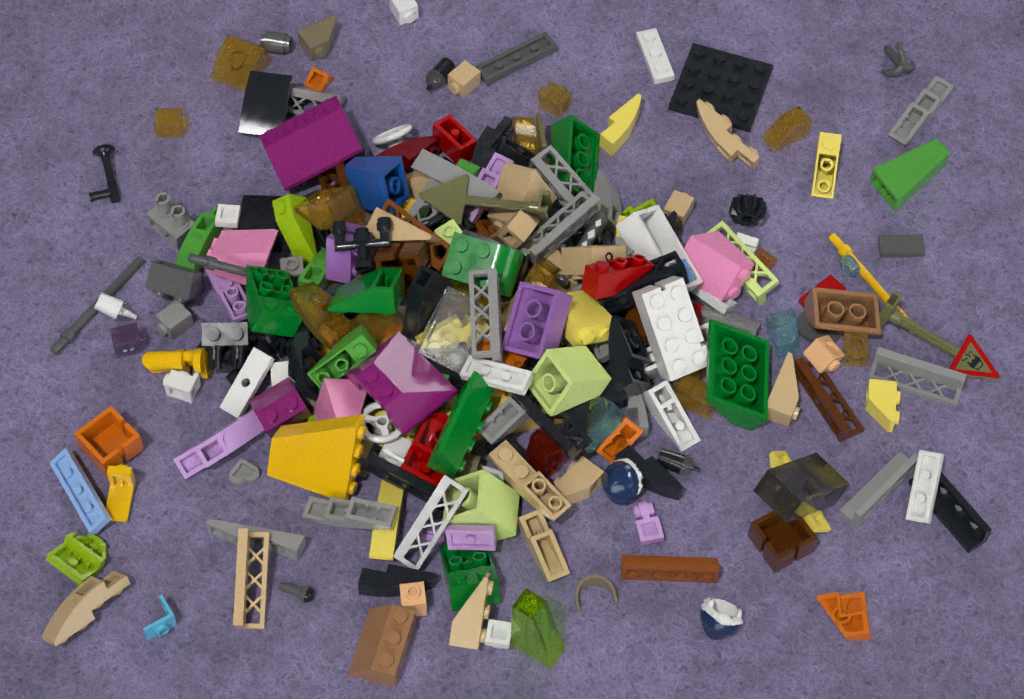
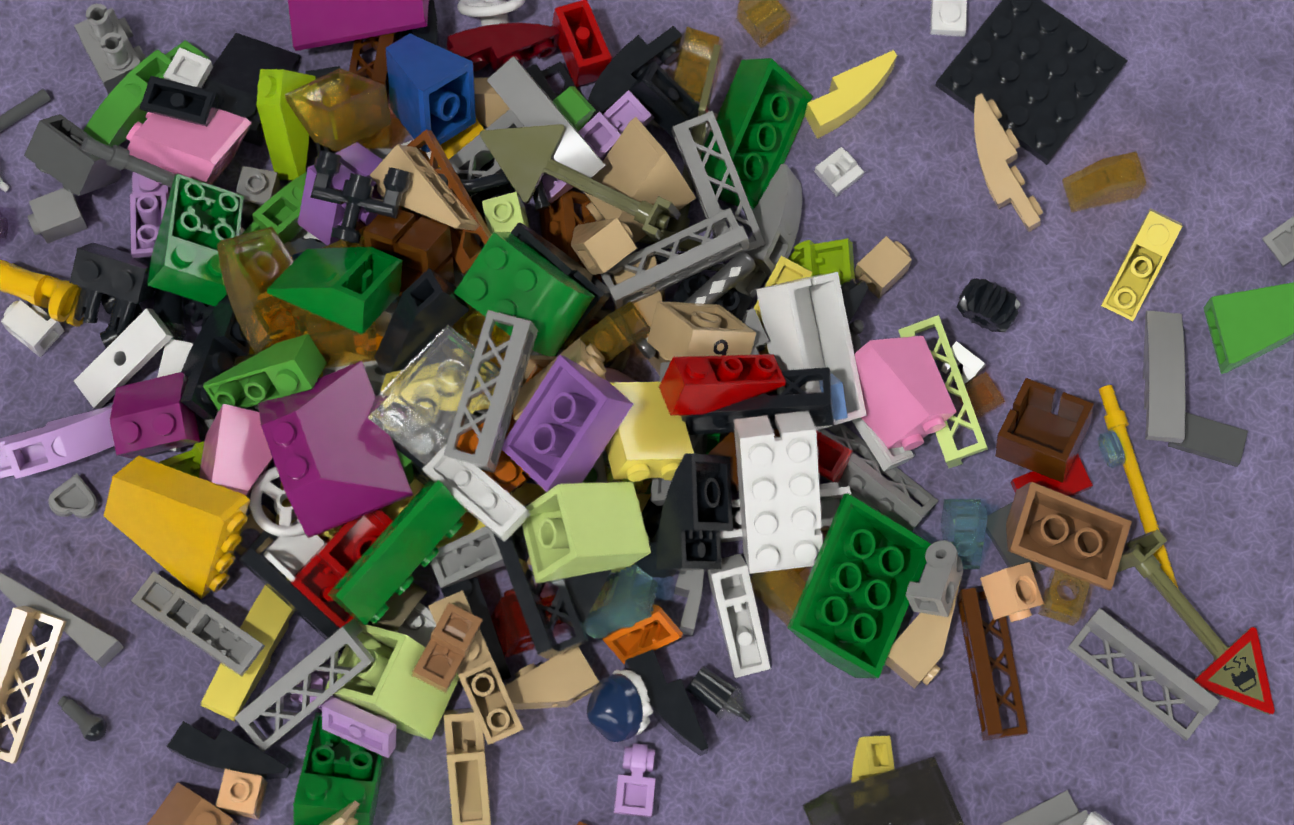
camera: 15 degrees right, 15 degrees up
(231, 229) = (180, 101): none -> black slope
(509, 471) = (447, 647): none -> medium nougat slope
(631, 168) = (839, 171): none -> white tile
(781, 357) = (939, 581): none -> light grey leg
(805, 271) = (1043, 439): none -> reddish brown piece
(863, 219) = (1164, 377): none -> light grey slope
(882, 402) = (1070, 701): light yellow slope -> none

